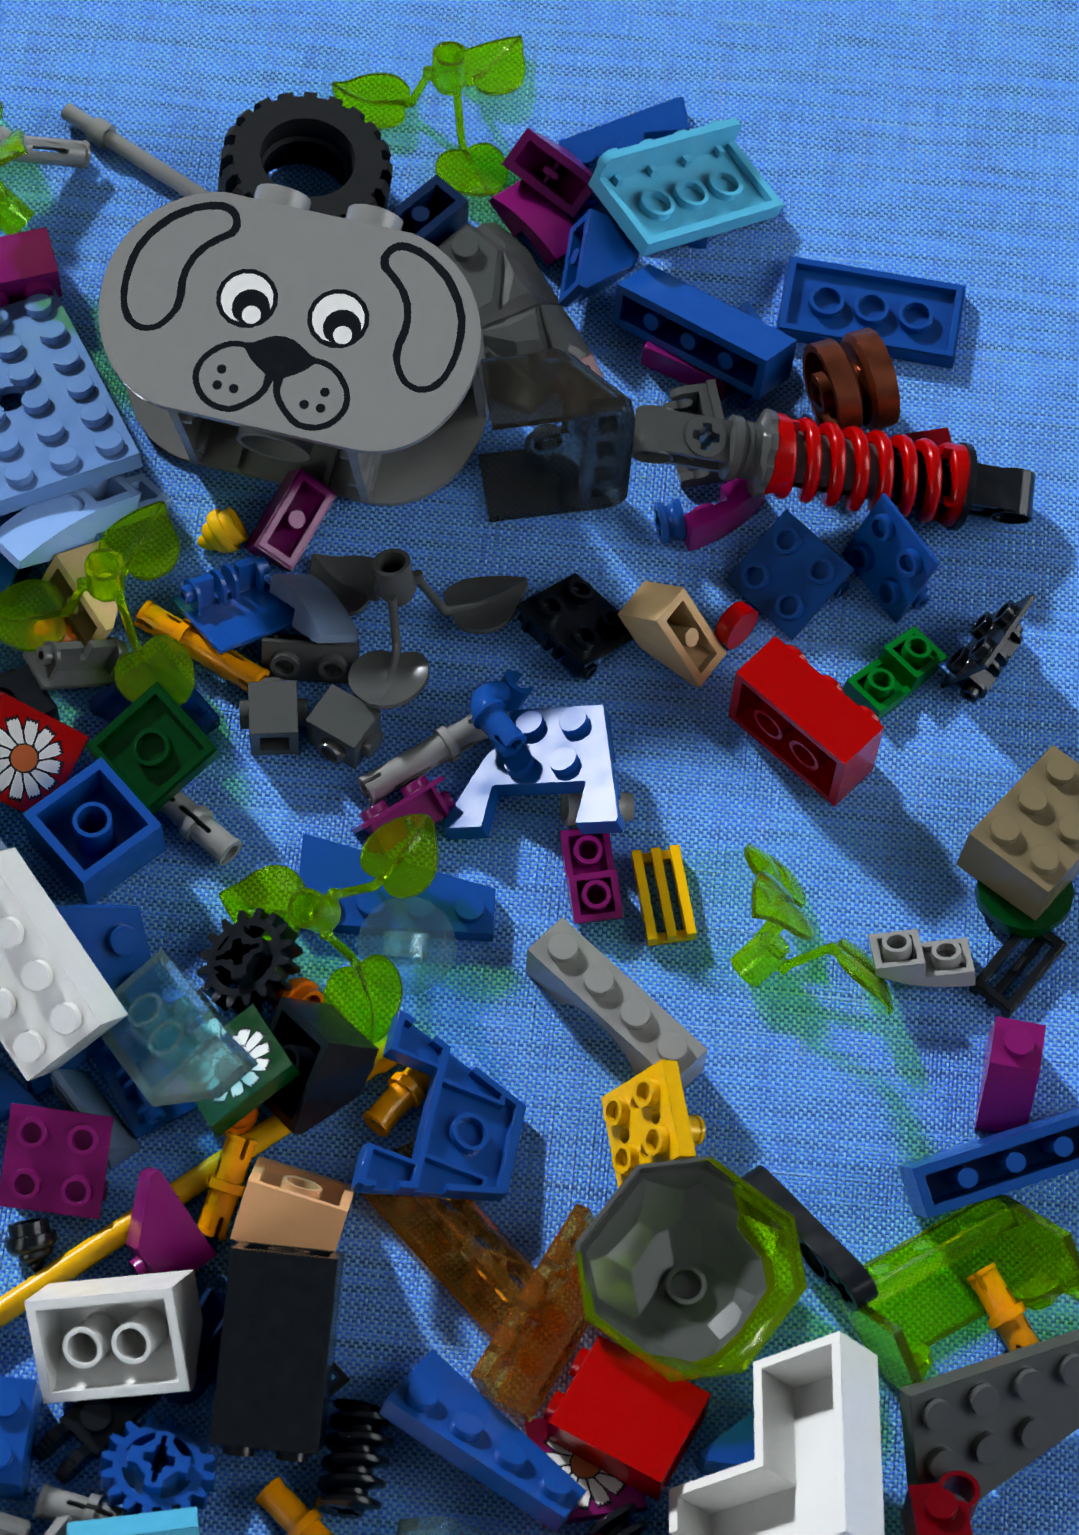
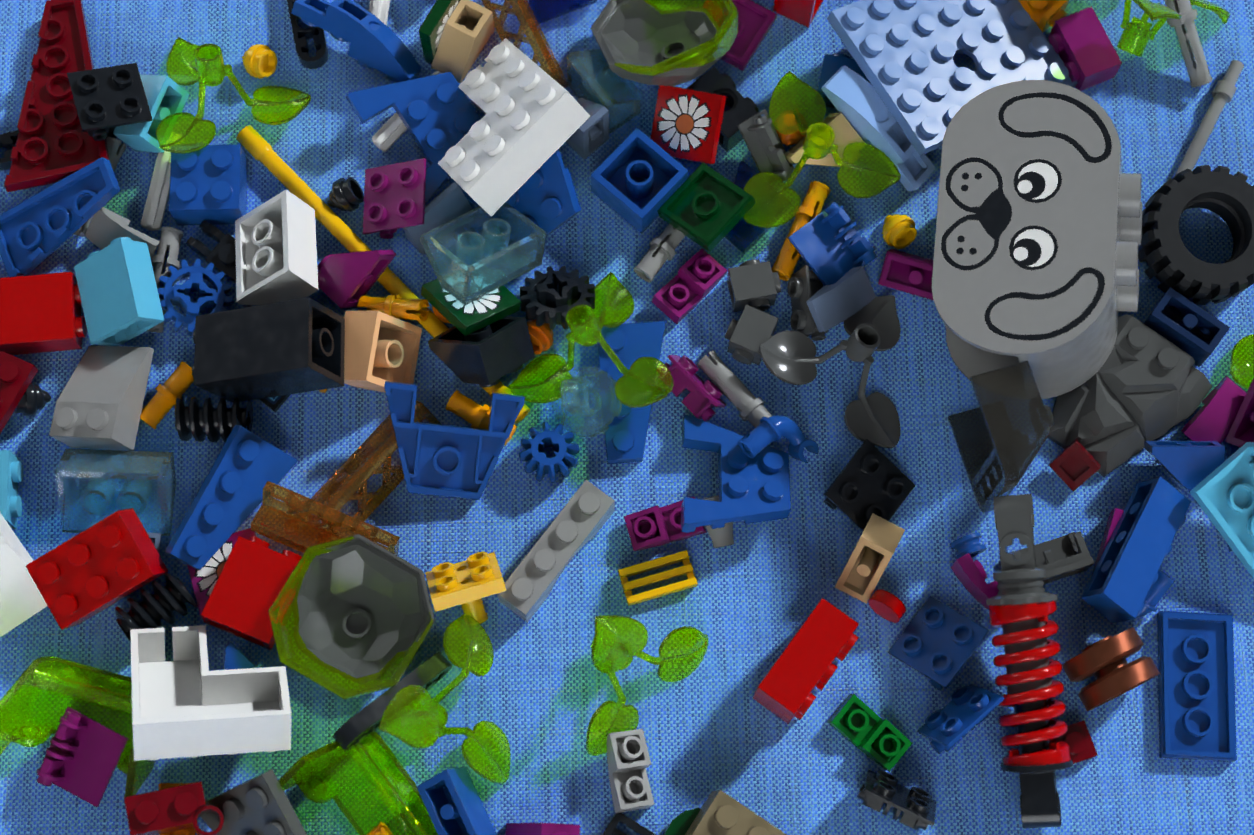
camera: 85 degrees right, 10 degrees up
(255, 799) = (689, 286): none -> magenta slope
(462, 987) = (536, 456): none -> blue gear
(836, 1184) = (420, 719): none -> clear neon green plant

